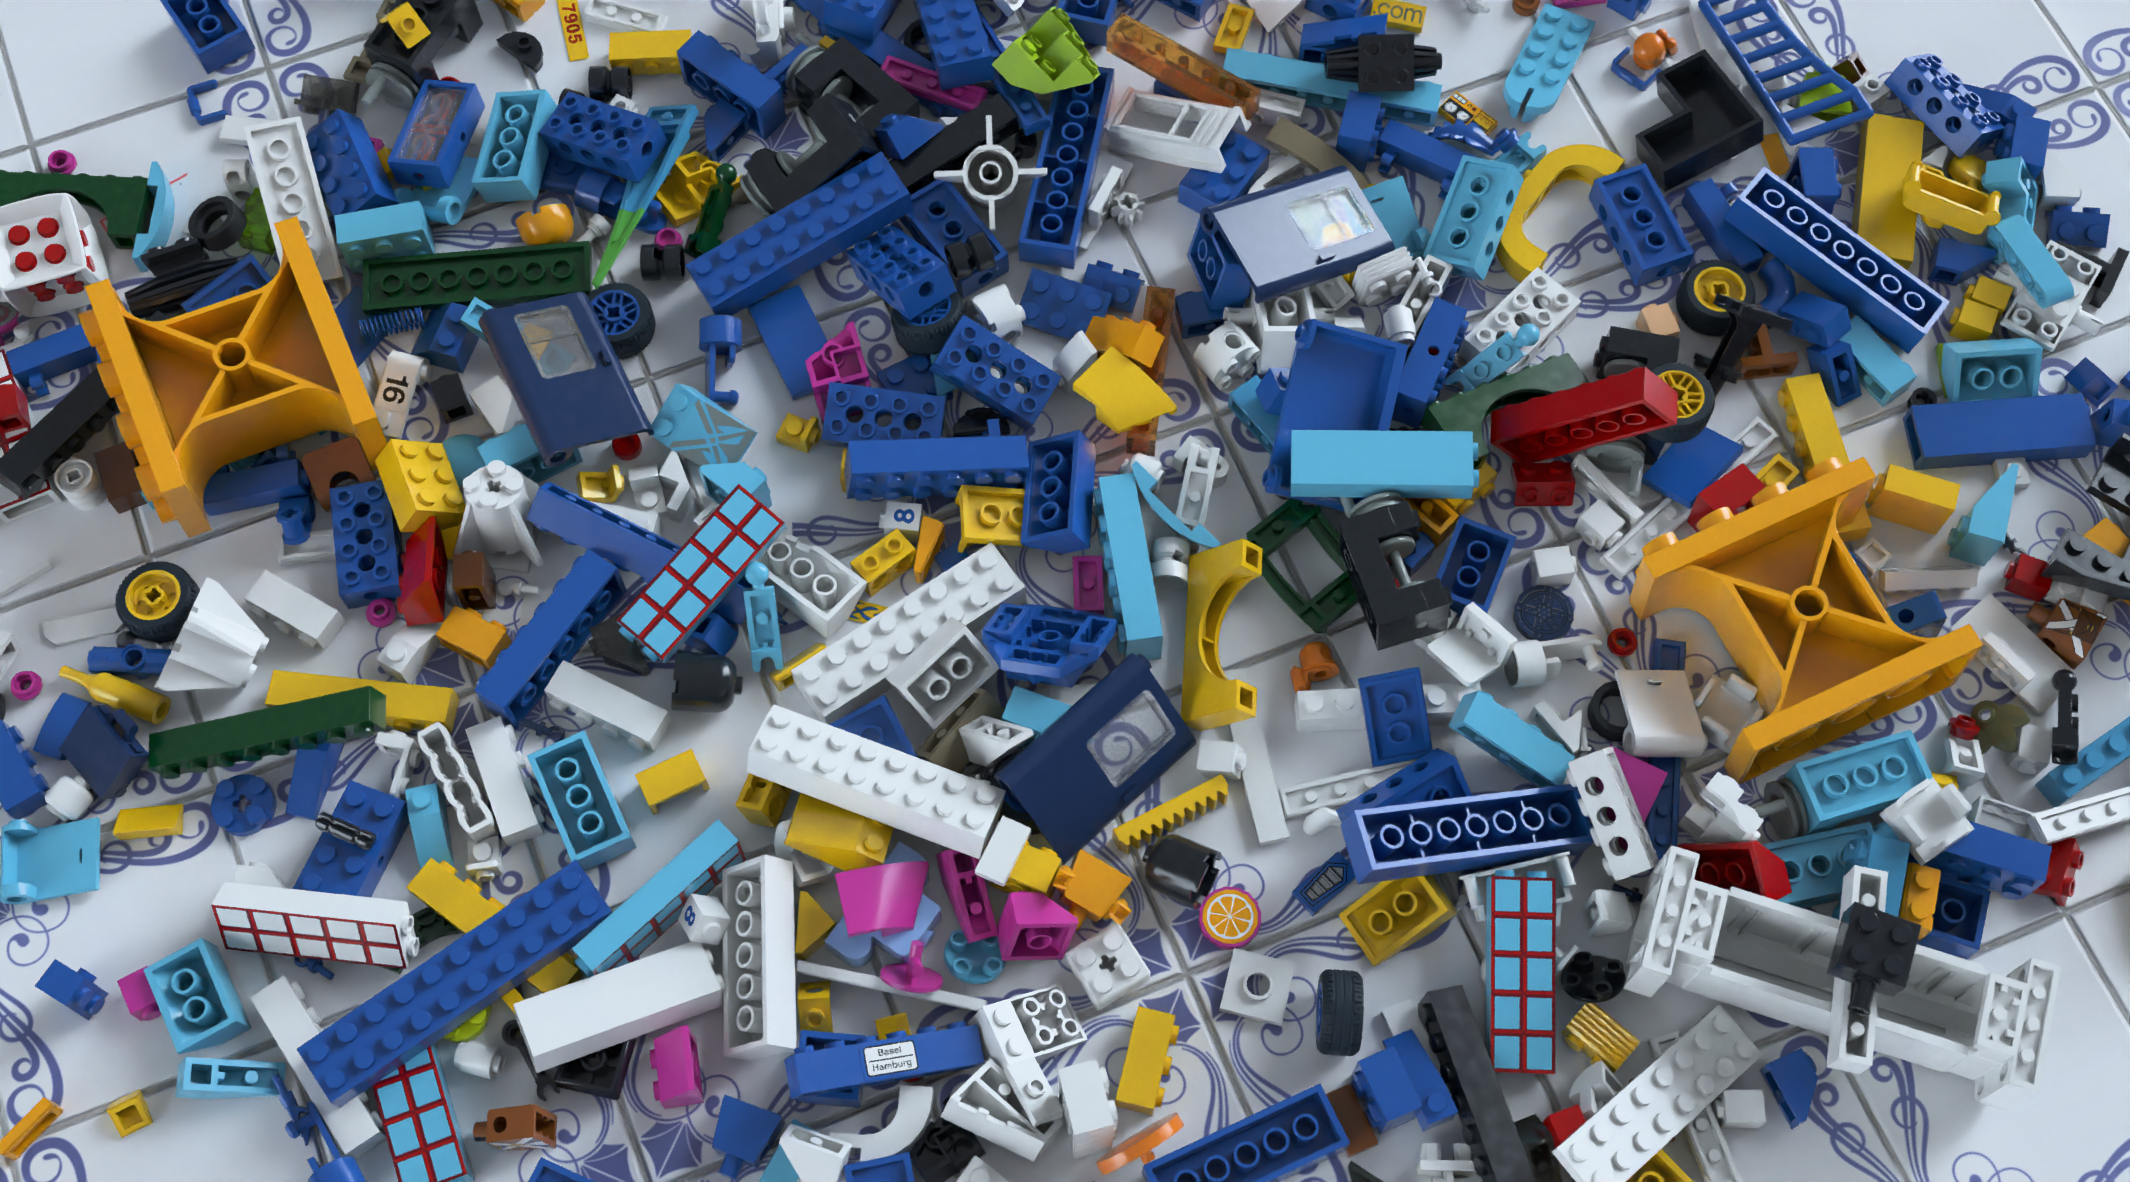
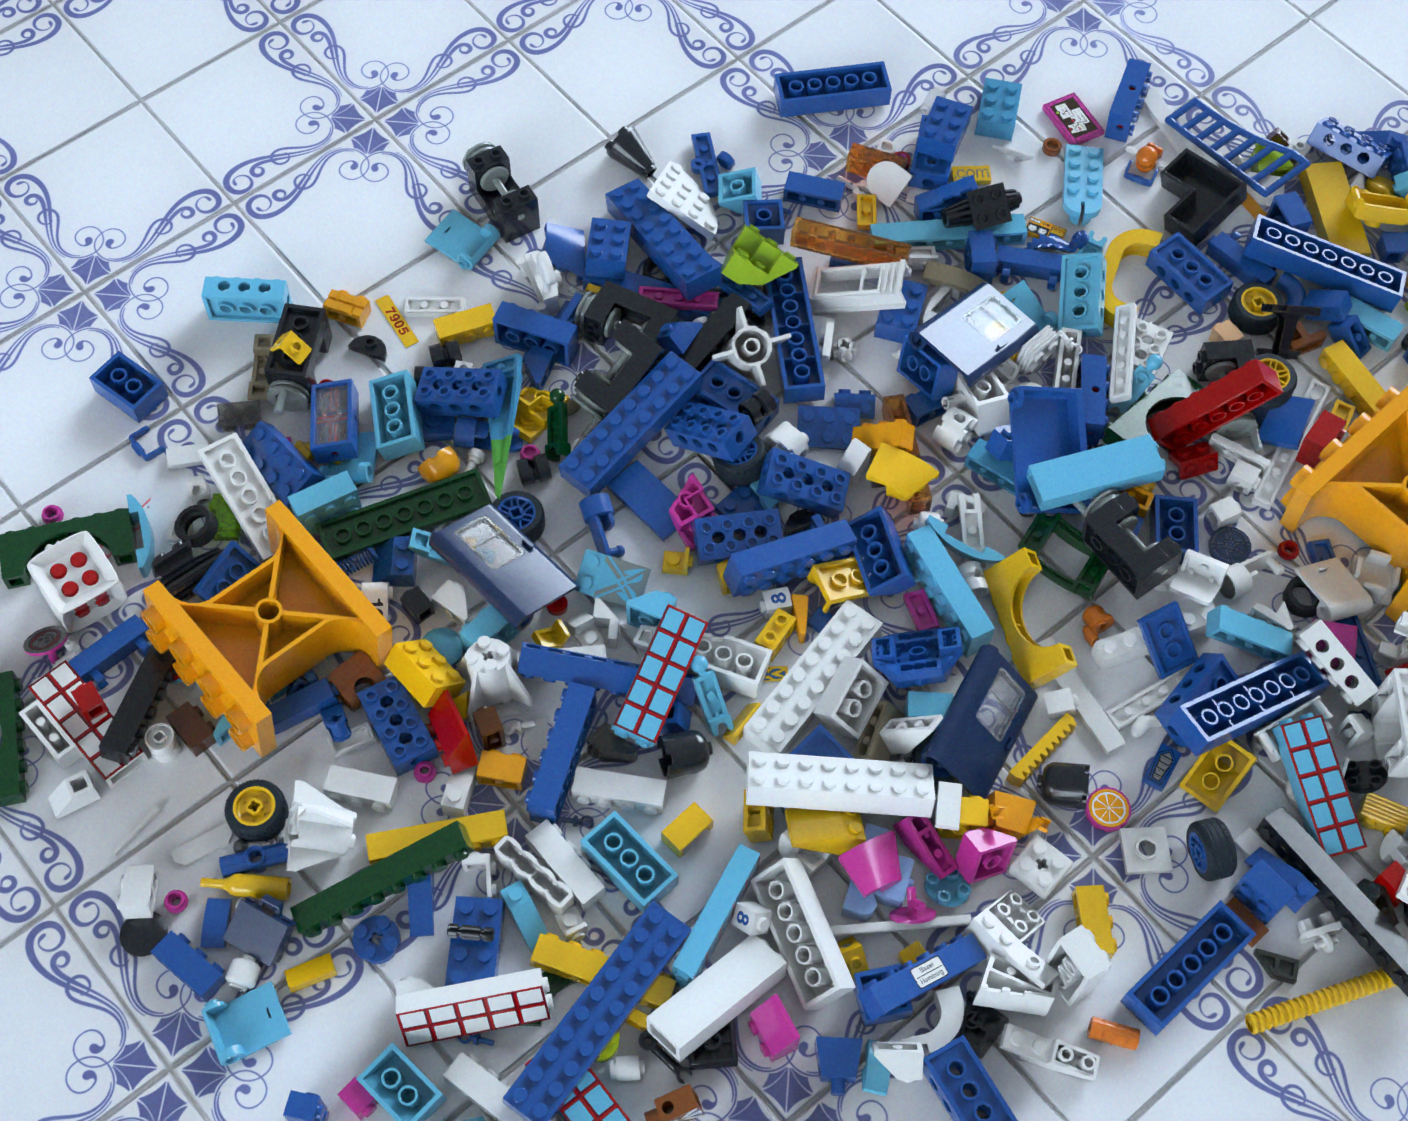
camera: 20 degrees left, 5 degrees down
(812, 927) = (828, 896): yellow slope -> none
(1140, 1144) = (1118, 979): orange piece -> none
(1400, 325) = (1065, 377): white brick -> none
(1494, 311) = (1123, 353): none -> white tile

